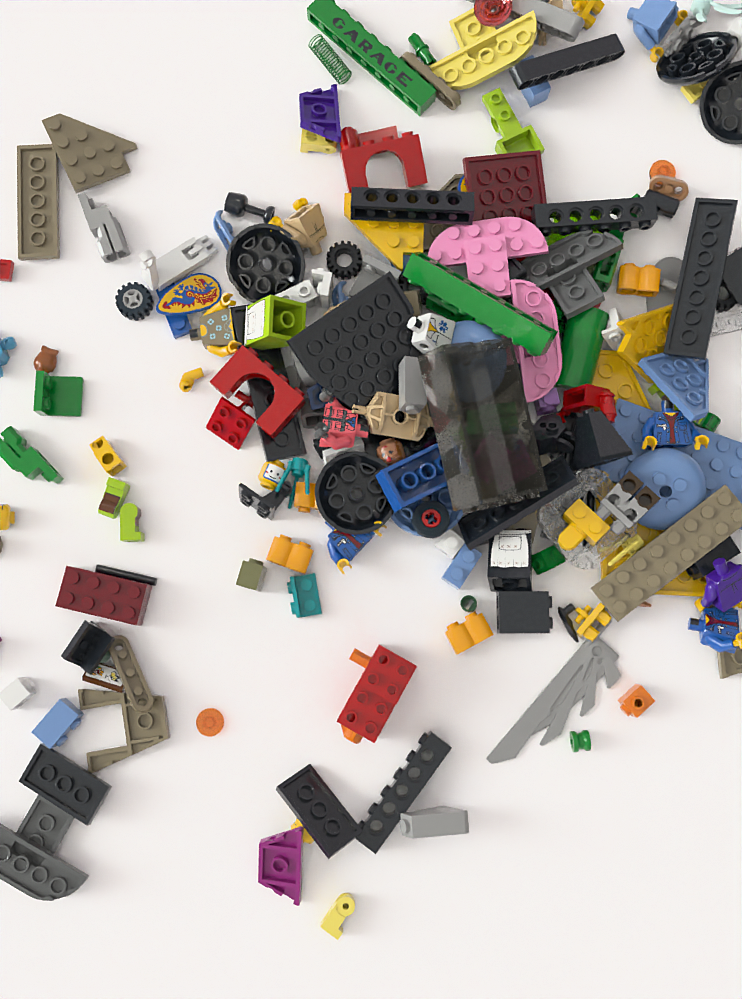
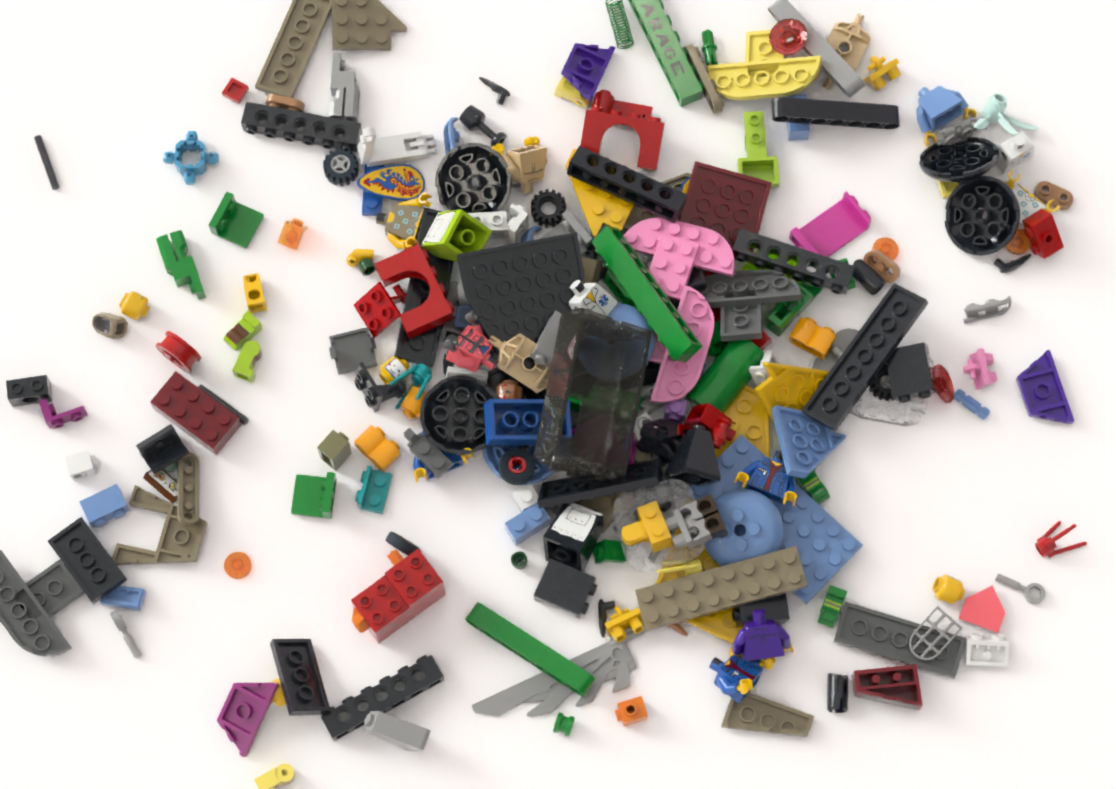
camera: 25 degrees right, 10 degrees down
(30, 283) = (294, 119): none -> black brick
(46, 359) = (238, 185): dark orange animal -> none
(60, 262) = (285, 102): none -> medium nougat plate
(60, 545) = (178, 352): none -> red wheel
(117, 384) = (292, 233): none -> clear orange bracket
(118, 802) = (125, 597): none -> medium blue plate
(124, 830) = (120, 624): none -> light grey piece
(201, 385) = (367, 266): none -> dark green hinge
(225, 471) = (352, 348): none -> dark grey piece
(246, 167) = (503, 93): none -> black bar
(251, 625) = (314, 495): none -> green bracket
(341, 542) = (427, 453): none -> dark grey hinge
(356, 638) = (401, 543): none -> black bush
(468, 633) = (506, 585): light orange brick -> none
(518, 684) = (530, 649): none -> green beam
(608, 169) = (833, 227): none -> dark pink panel

